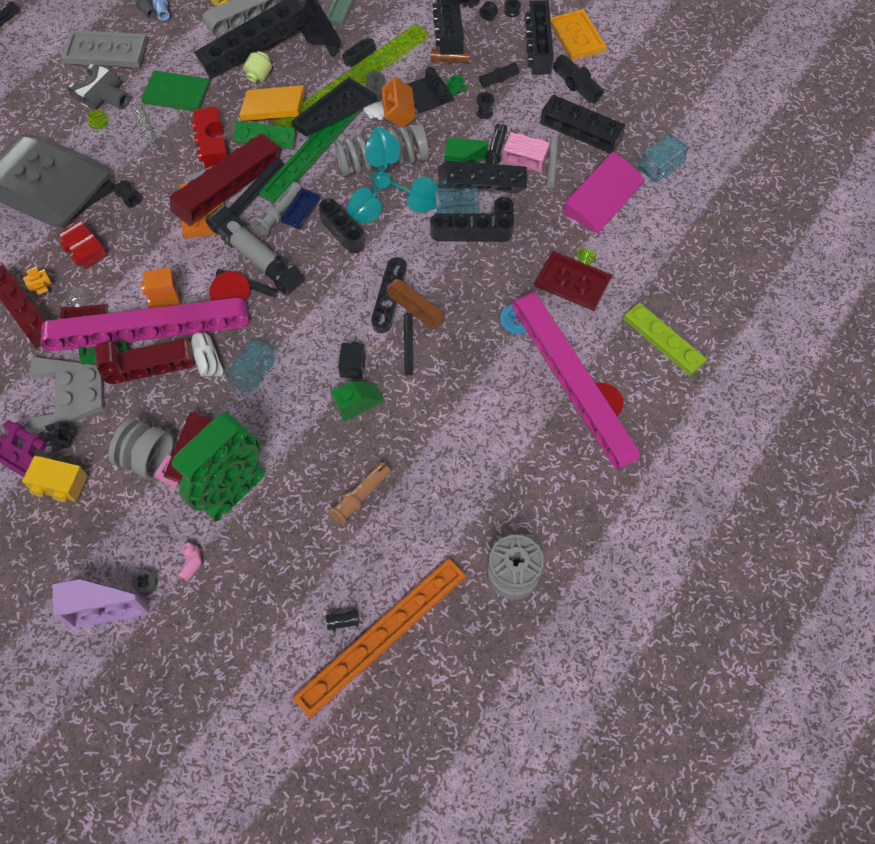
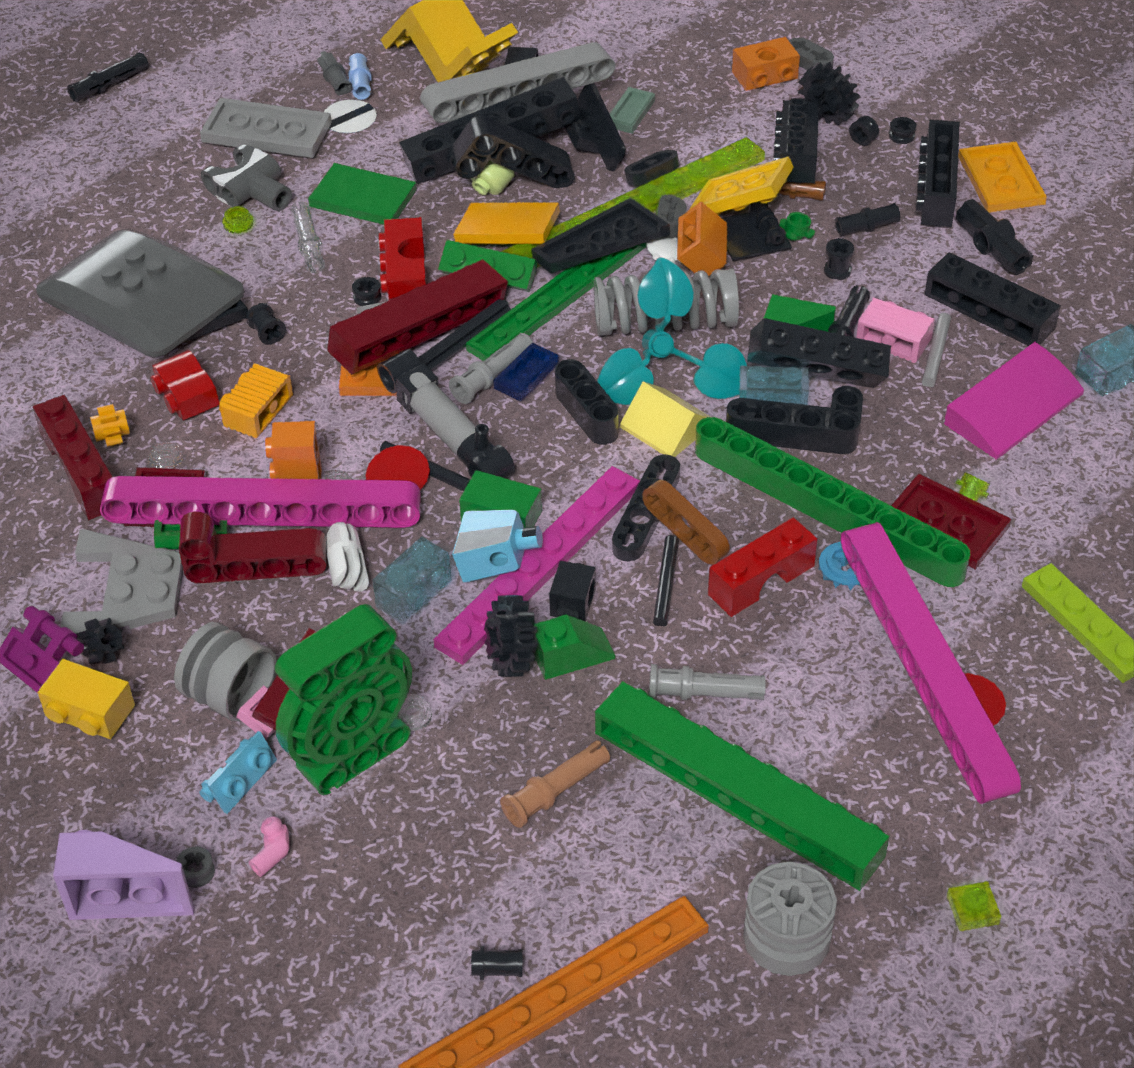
camera: 10 degrees right, 15 degrees down
(129, 250) = (255, 400): none -> light orange brick
(159, 33) = (351, 116): none -> white sticker
(165, 510) = (240, 774): none -> medium azure hinge
(193, 166) = (365, 284): none -> black bush
(267, 50) = (494, 141): none -> black beam
(297, 335) = (492, 543): none -> medium azure torso
(298, 306) = (497, 493): none -> green brick
(318, 399) = (510, 636): none -> black gear
(326, 344) = (560, 543): none -> dark pink plate
(392, 232) = (662, 419): none -> light yellow slope
(420, 61) = (745, 186): none -> yellow plate
(430, 414) = (687, 683): none -> light grey pin
(454, 338) = (740, 576): none -> red arch
(473, 478) = (742, 785): none -> green brick
(500, 276) = (829, 499): none -> green beam
(621, 538) = (973, 906): none -> clear neon green plate

